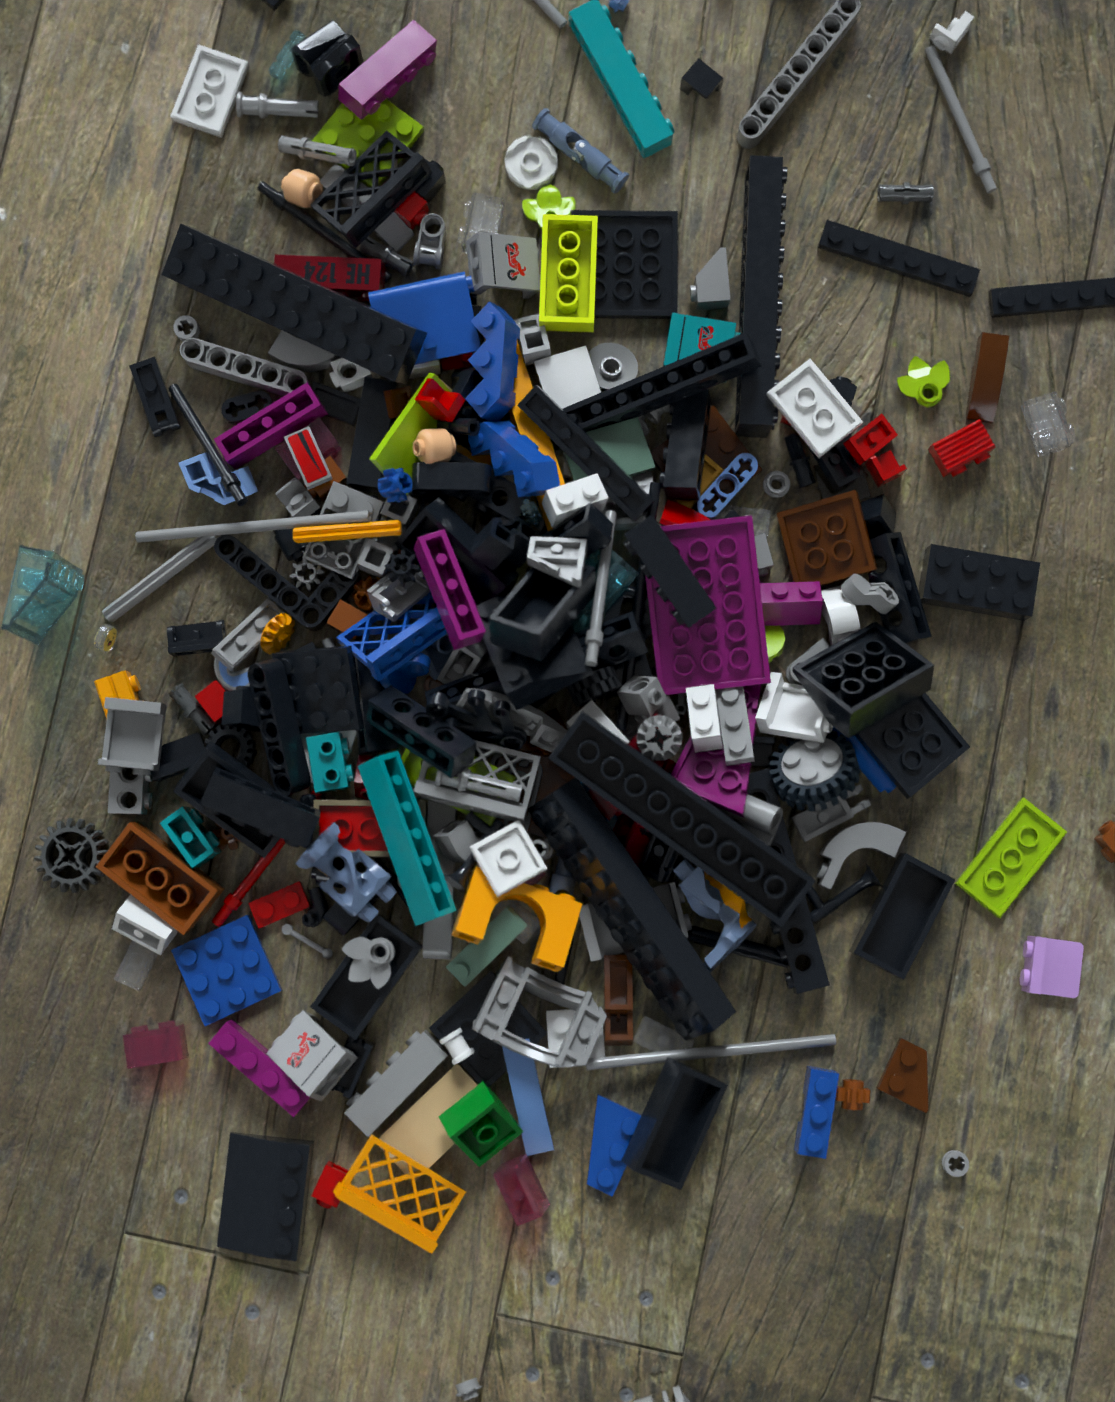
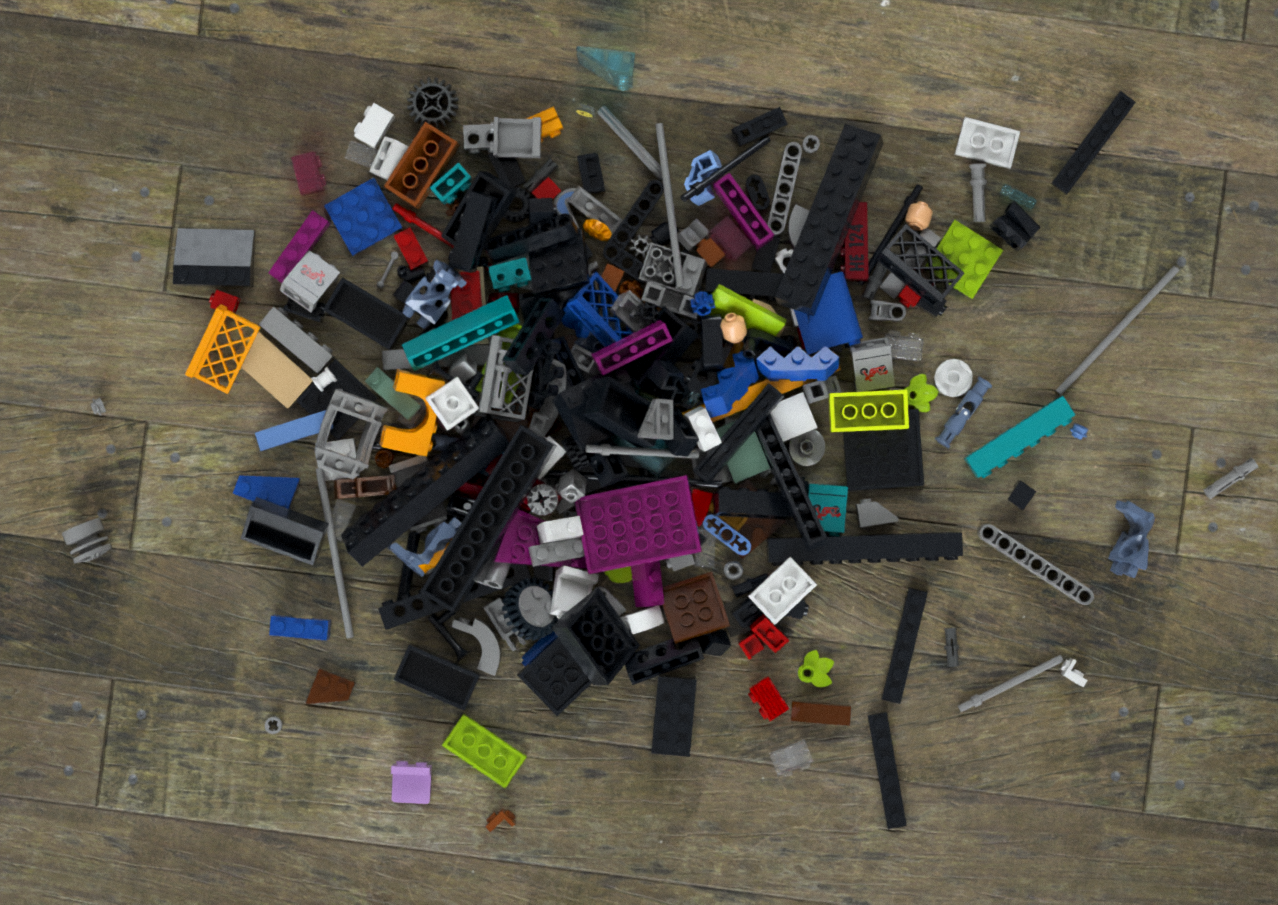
camera: 80 degrees right, 5 degrees up
(95, 943) = (374, 125): none -> white brick
(291, 146) = (947, 217): light grey pin -> none
(308, 457) = (721, 240): slope -> none
(347, 531) = (669, 273): light orange axle -> none
(367, 962) = (374, 313): light grey plate -> none
(387, 70) = (1009, 270): brick -> none
(396, 400) = (767, 297): reddish brown tile -> none
(439, 403) = (765, 329): red panel -> none
(480, 1124) = (273, 399): green slope -> none
(521, 1189) = (232, 431): clear pink brick -> none
(579, 968) = (384, 458): none -> reddish brown plate
(670, 571) = (656, 498): black brick -> none
(852, 1094) = (313, 651): dark orange gear -> none
(862, 592) = (657, 639): light grey piece -> none

